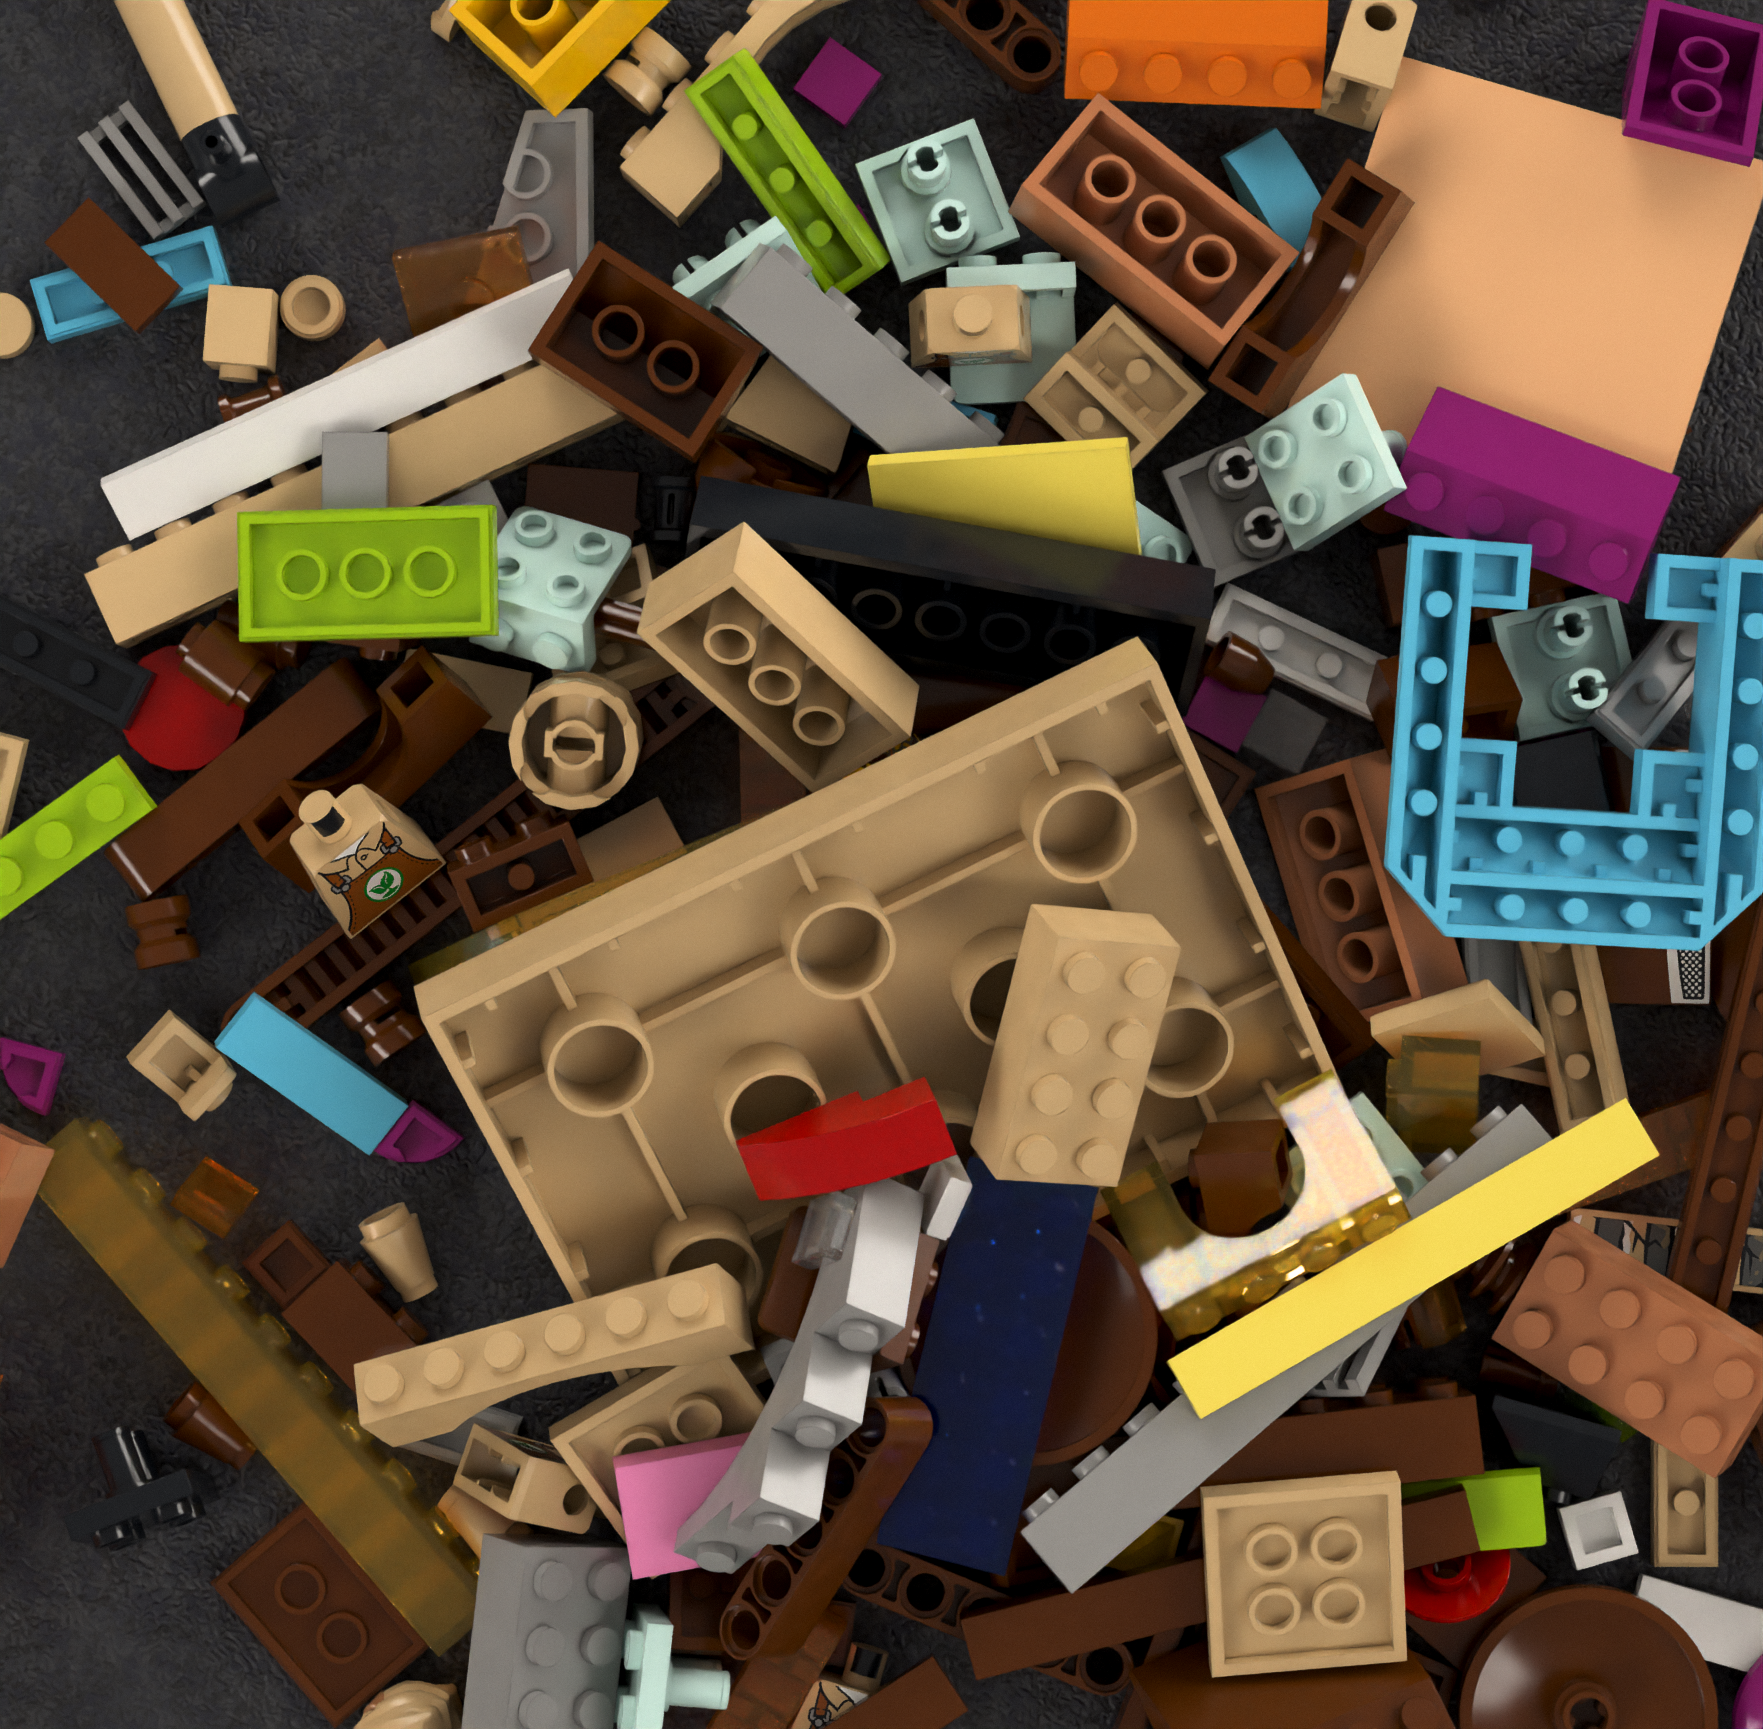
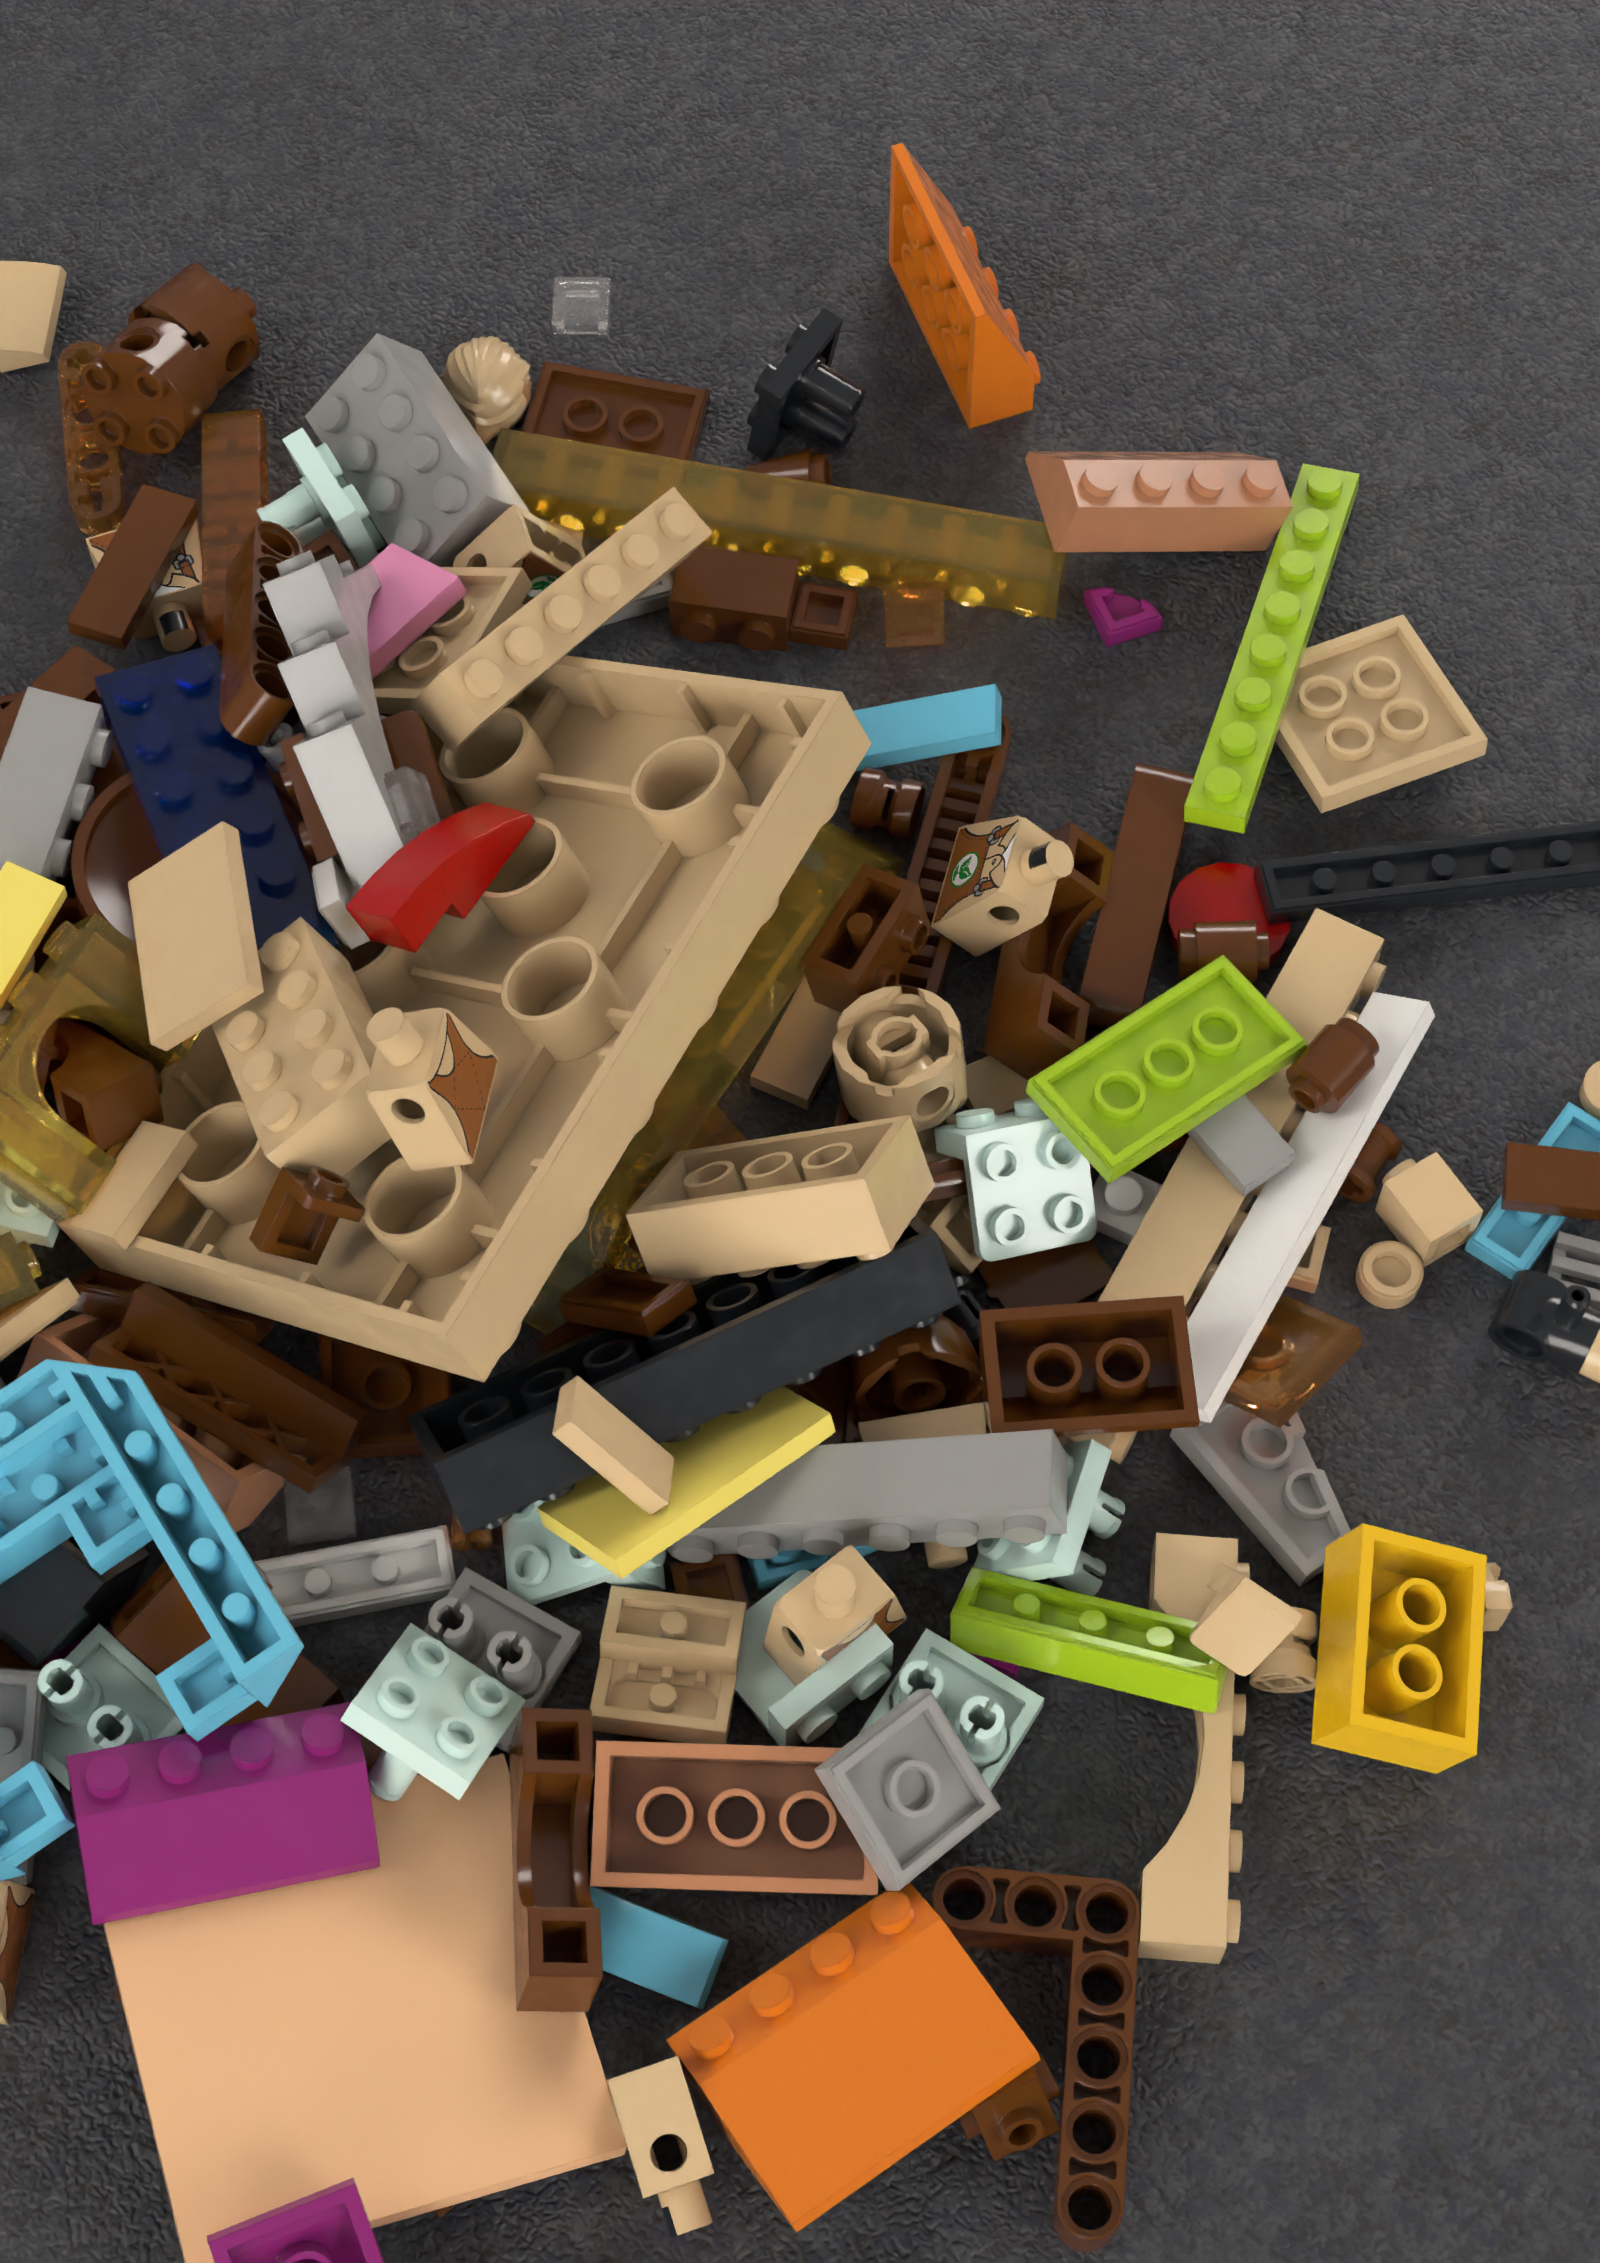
camera: 145 degrees right, 25 degrees down
(162, 932) = (1105, 755): reddish brown wheel -> none
(184, 1065) = (1023, 678): tan bracket -> none
(232, 481) = (1332, 1066): none -> reddish brown brick
(399, 1250) = (745, 662): tan cone -> none
(671, 80) = (1242, 1622): none -> tan slope
(837, 83) = (1116, 1767): magenta tile -> none
(947, 672) = (627, 1301): none -> reddish brown tile
(1016, 897) = (430, 1085): none -> tan torso
(1022, 144) = (907, 1789): none -> light grey tile
(1063, 535) = (613, 1445): none -> tan tile
(1093, 1225) = (195, 936): none -> tan tile
(1172, 895) = (303, 1214): none -> reddish brown bracket
(1222, 714) = (386, 1485): magenta tile -> none
(1239, 665) = (395, 1517): reddish brown hose -> none
(1269, 1066) = (135, 1185): none -> tan tile
(1292, 863) = (234, 1384): none -> reddish brown fence

